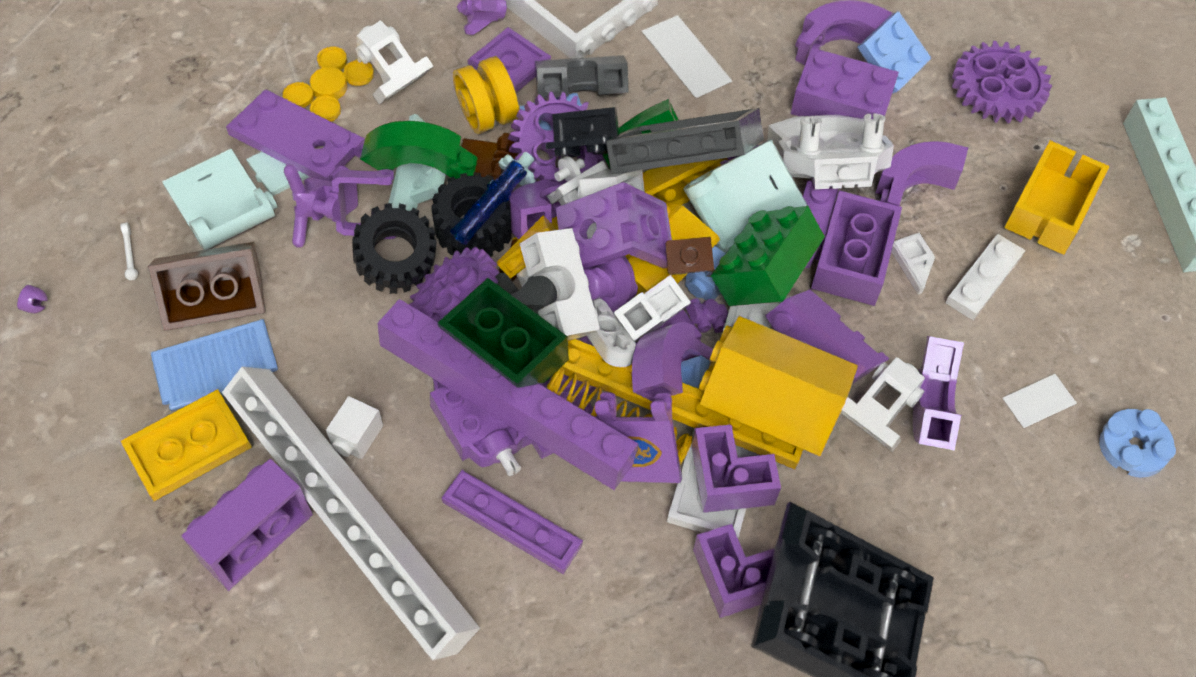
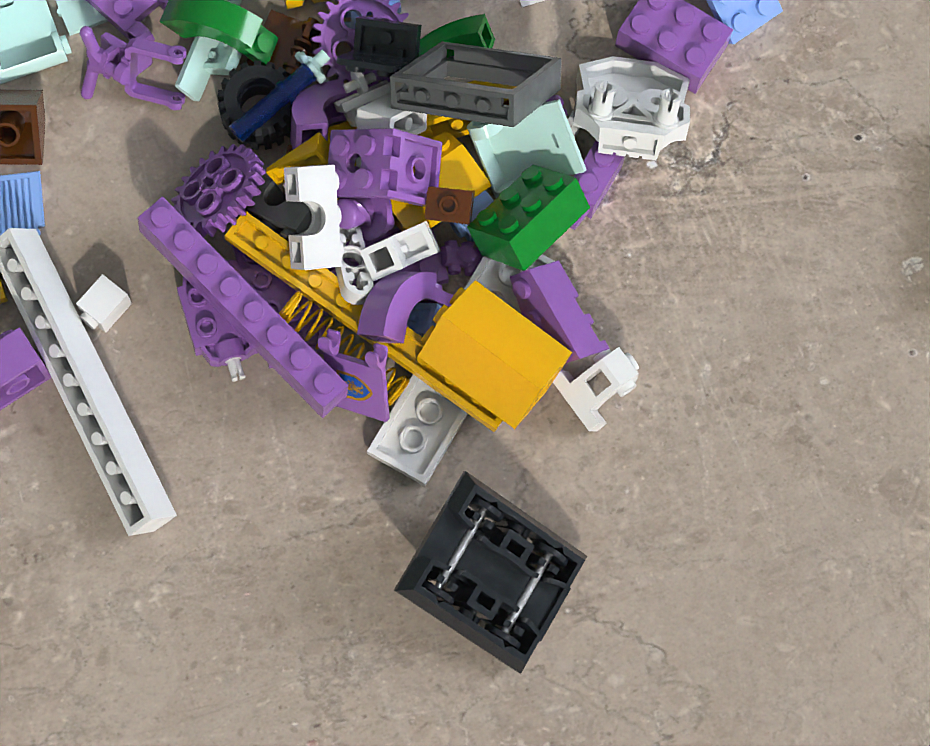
camera: 10 degrees right, 15 degrees up
(396, 223) = (167, 99): black tyre -> none
(507, 335) = (249, 259): dark green slope -> none
(512, 521) = (228, 422): medium lavender tile -> none
(731, 481) = (424, 433): medium lavender brick -> none
(731, 577) = (405, 518): medium lavender brick -> none
(857, 248) = (625, 219): medium lavender brick -> none
(914, 259) = (685, 239): white tile -> none
(919, 164) = (718, 136): medium lavender arch -> none
(935, 414) = (651, 389): arch -> none
(985, 277) = (748, 273): white plate -> none
(1001, 82) = (842, 81): medium lavender gear -> none
(1039, 400) = (754, 411): white sticker -> none
(1053, 203) = (846, 205): yellow piece -> none
(1147, 427) = (842, 459): light blue plate -> none

